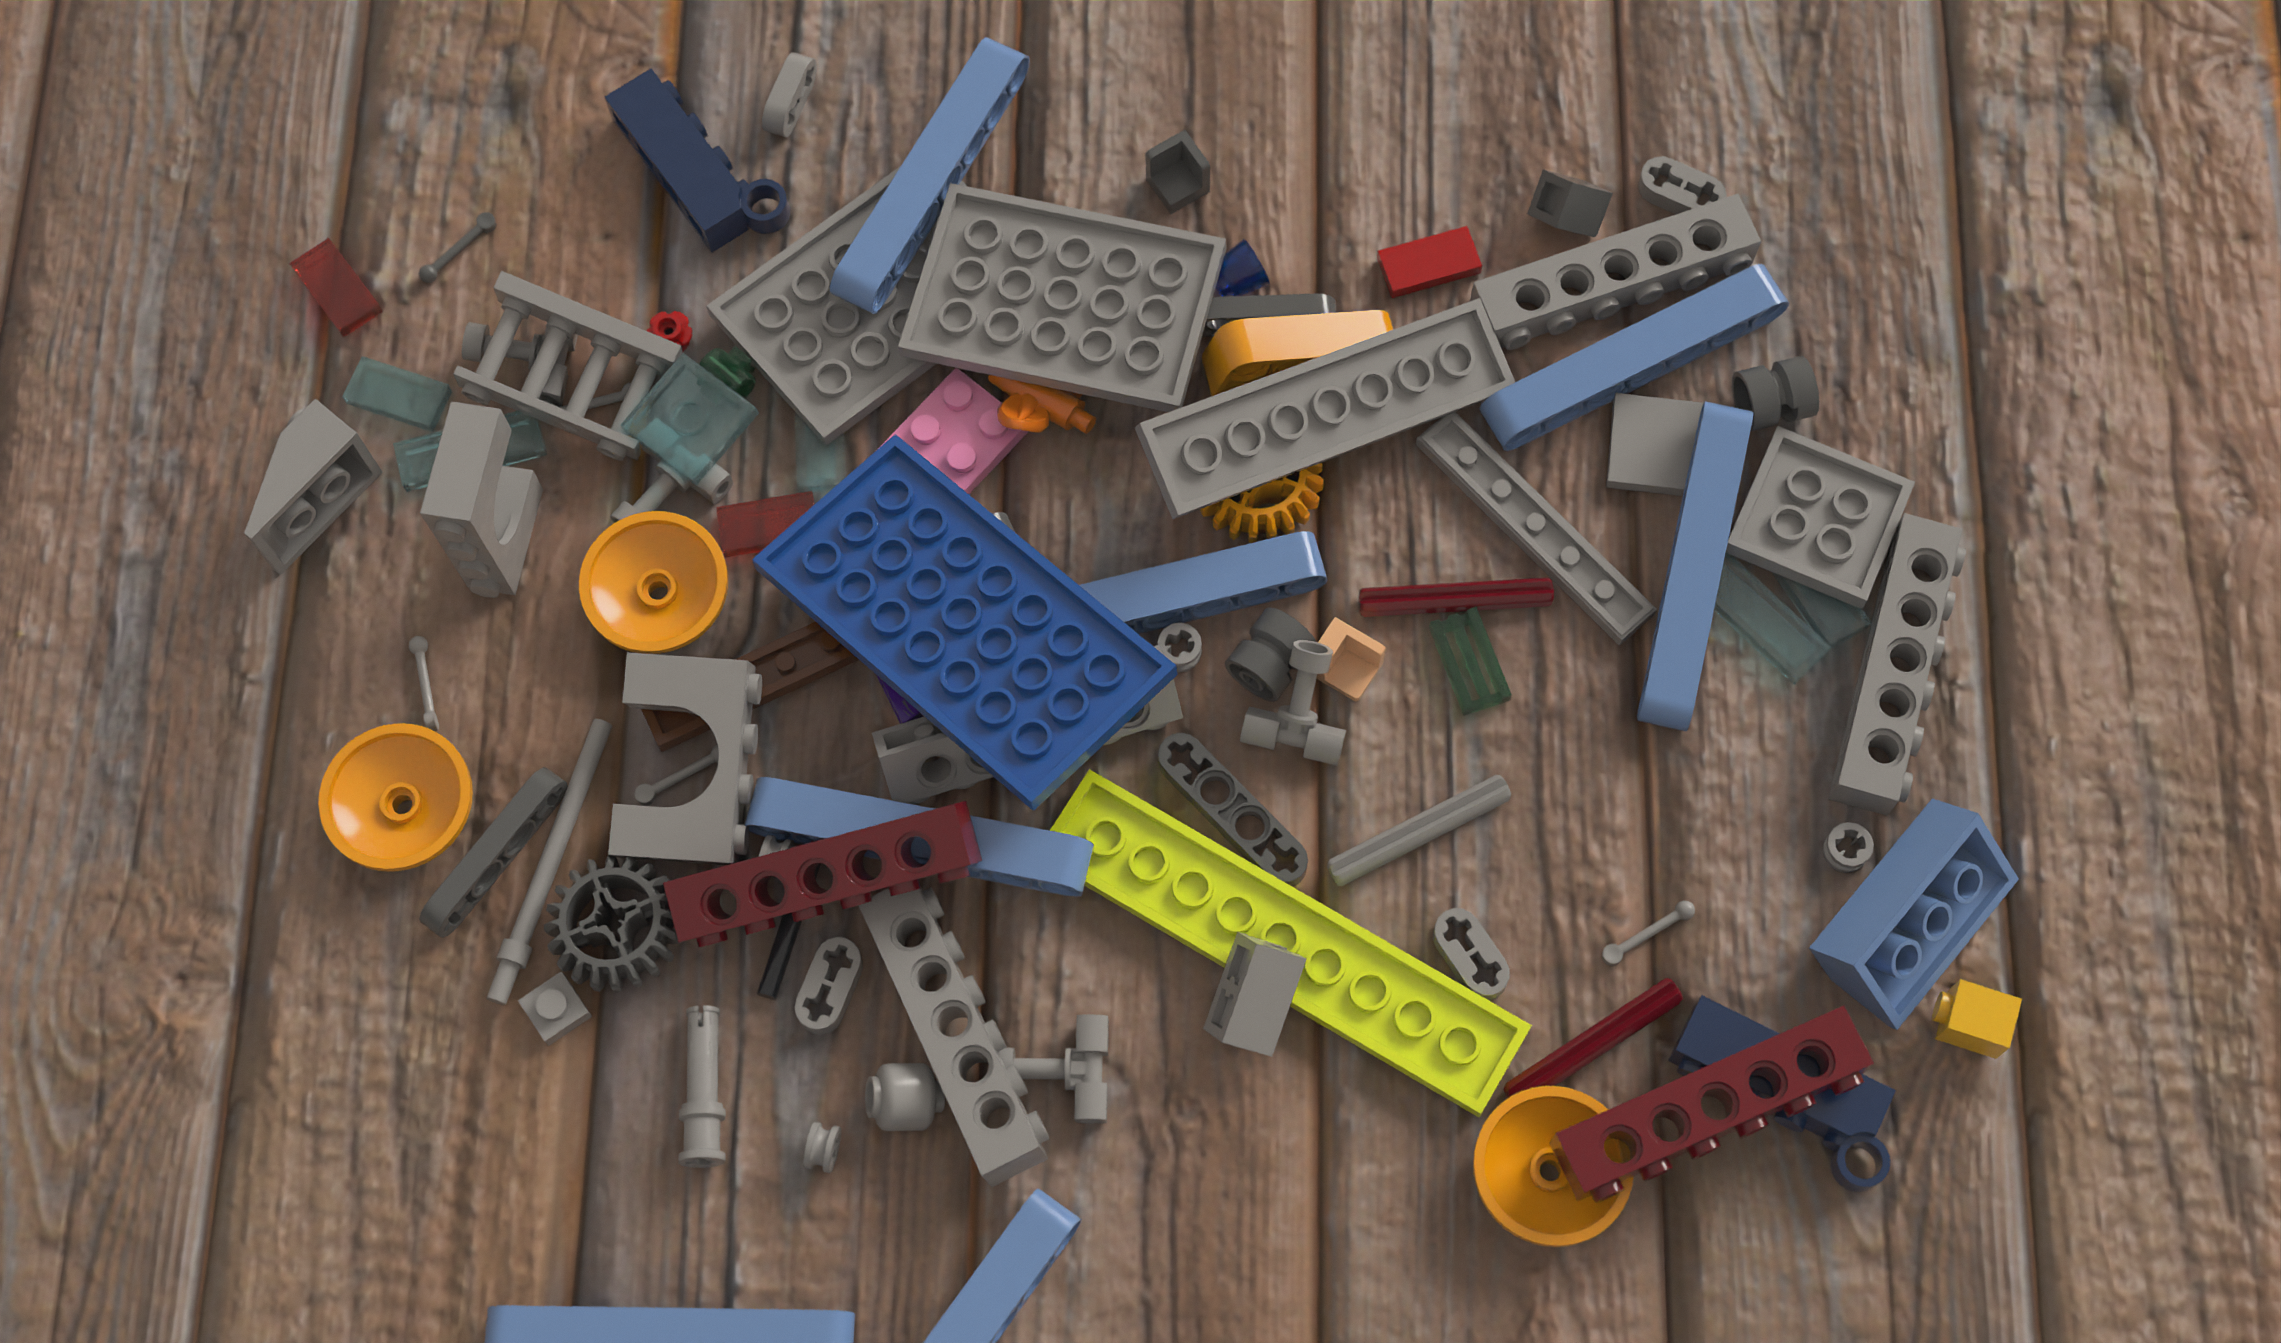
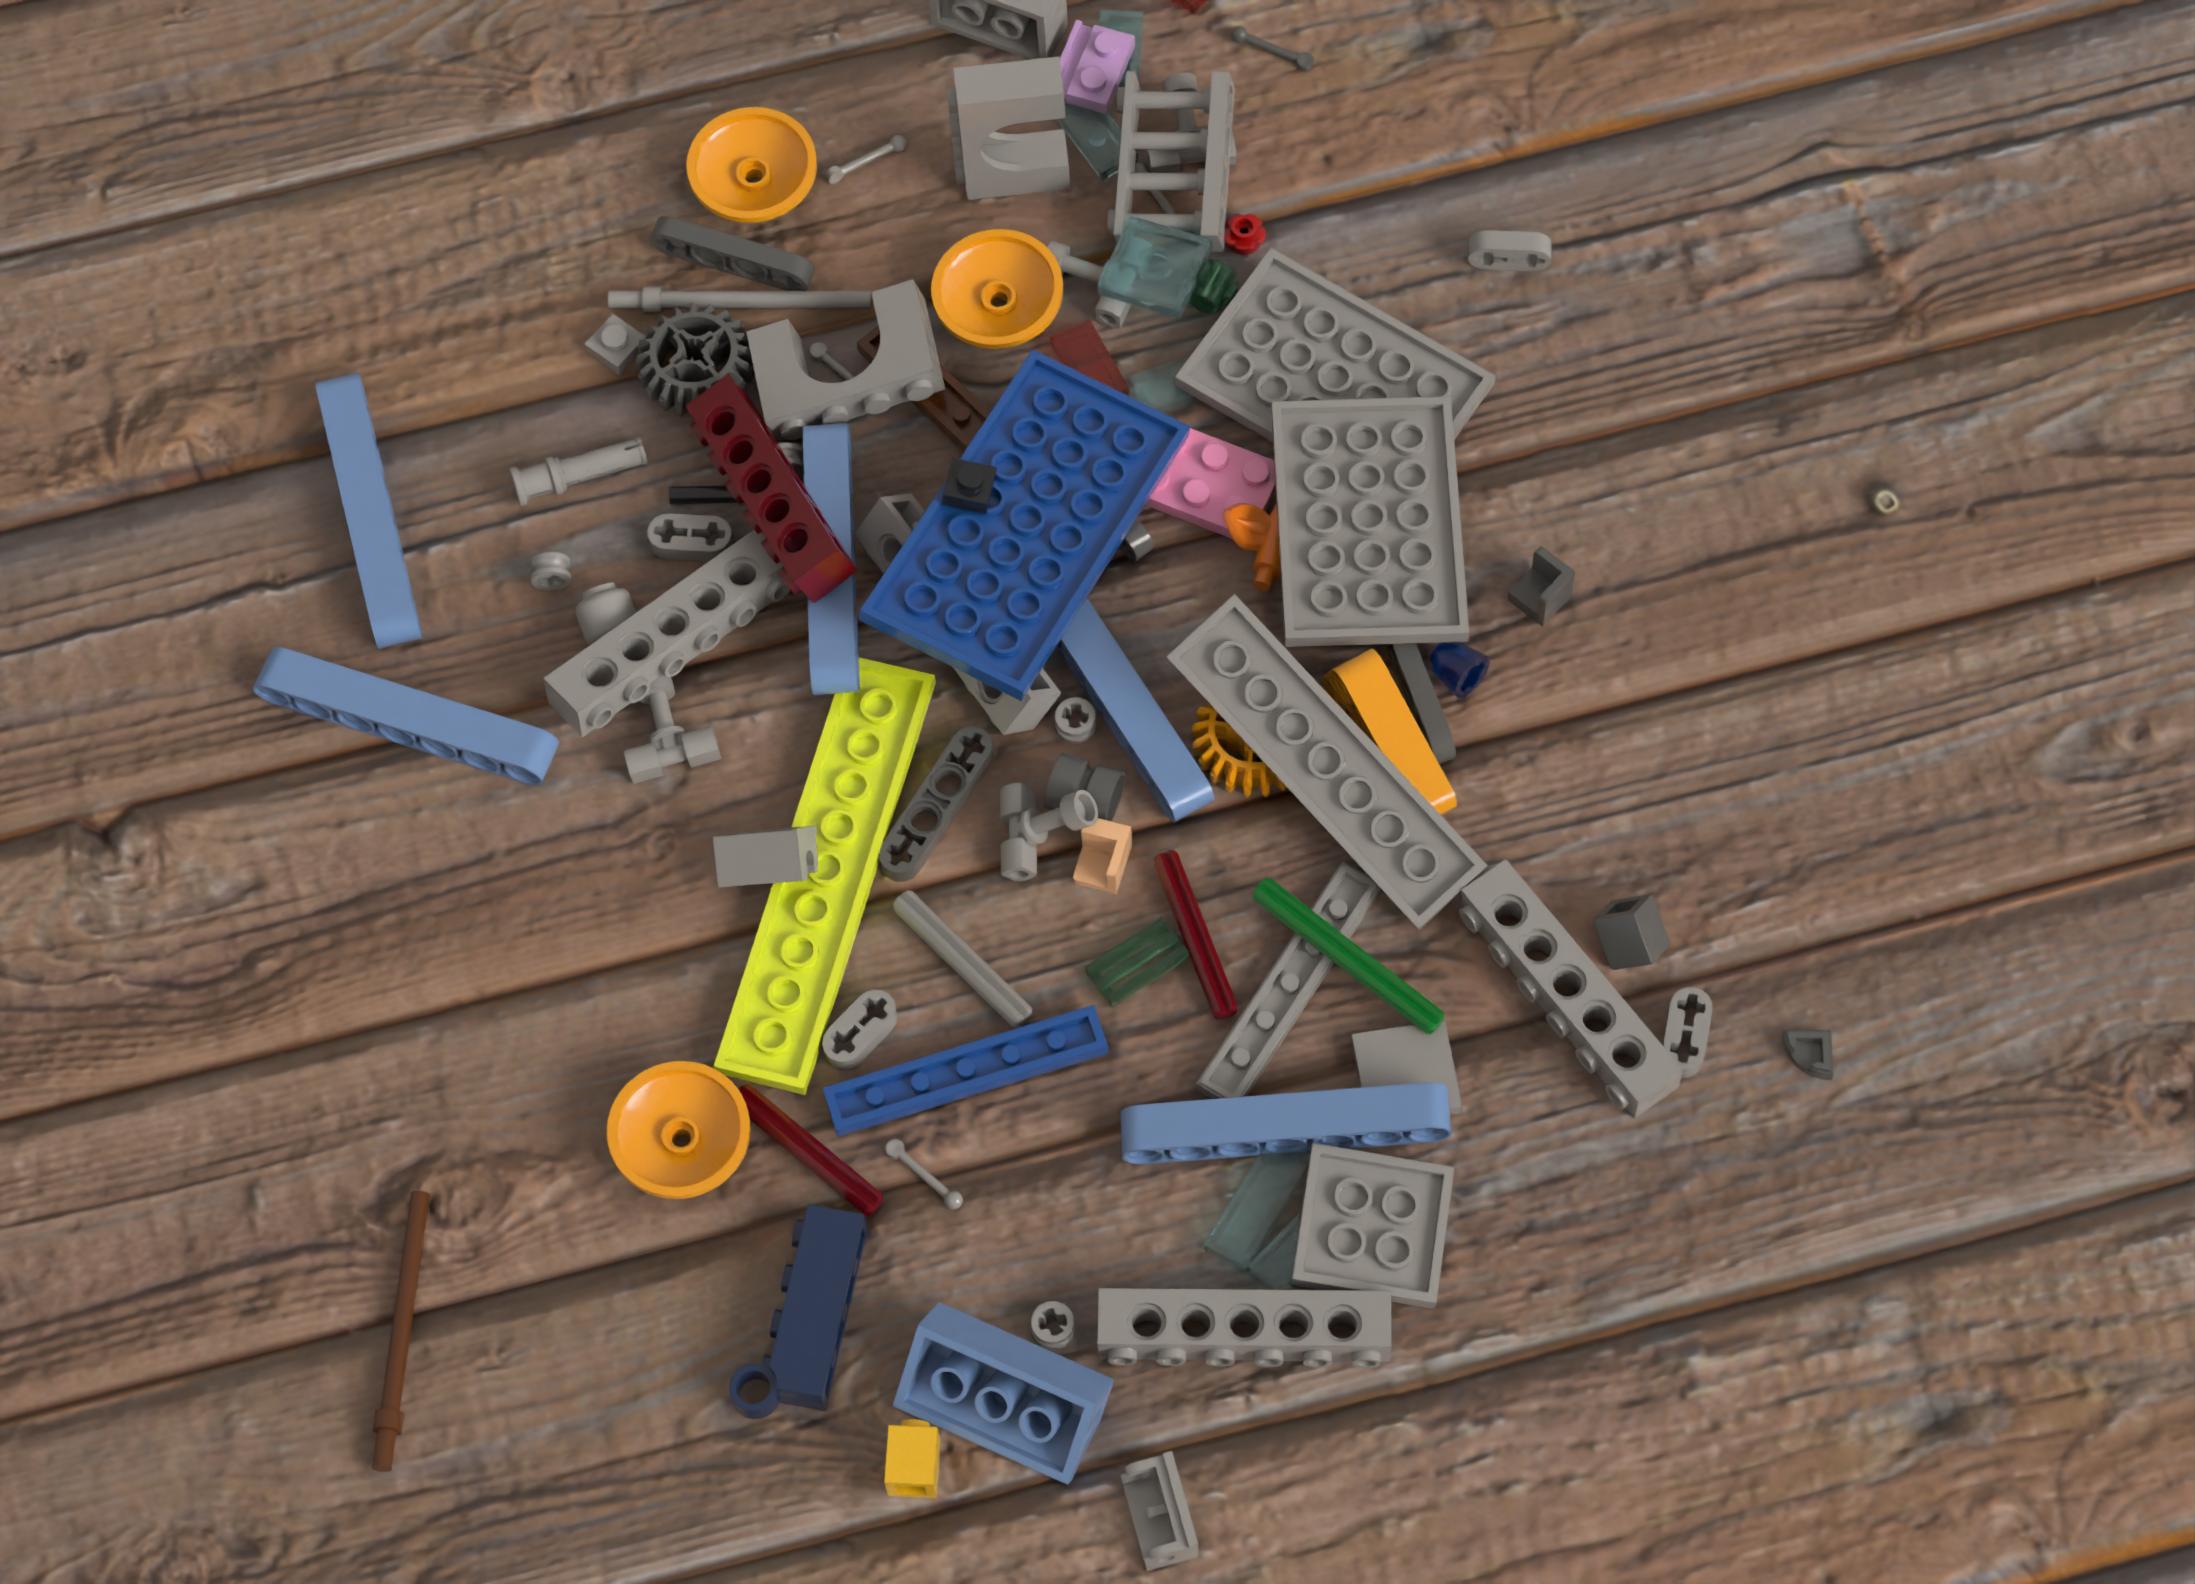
camera: 75 degrees right, 5 degrees down
(406, 418) = (1094, 65): none -> lavender plate
(688, 167) = (1409, 192): dark blue hinge -> none
(910, 656) = (969, 485): none -> black plate
(921, 184) = (1472, 380): medium blue beam -> none
(1429, 262) = (1530, 828): red tile -> none
(1528, 457) = (1348, 955): none -> green axle
(1550, 860) = (965, 1070): none -> blue plate
(1633, 357) = (1491, 1029): medium blue beam -> none
(1728, 94) = (1810, 1051): none -> dark grey tile
(1783, 392) = (1483, 1151): dark grey wheel -> none
(1827, 1038) = (690, 1138): dark red brick -> none
(2073, 795) = (1159, 1511): none -> light grey hinge

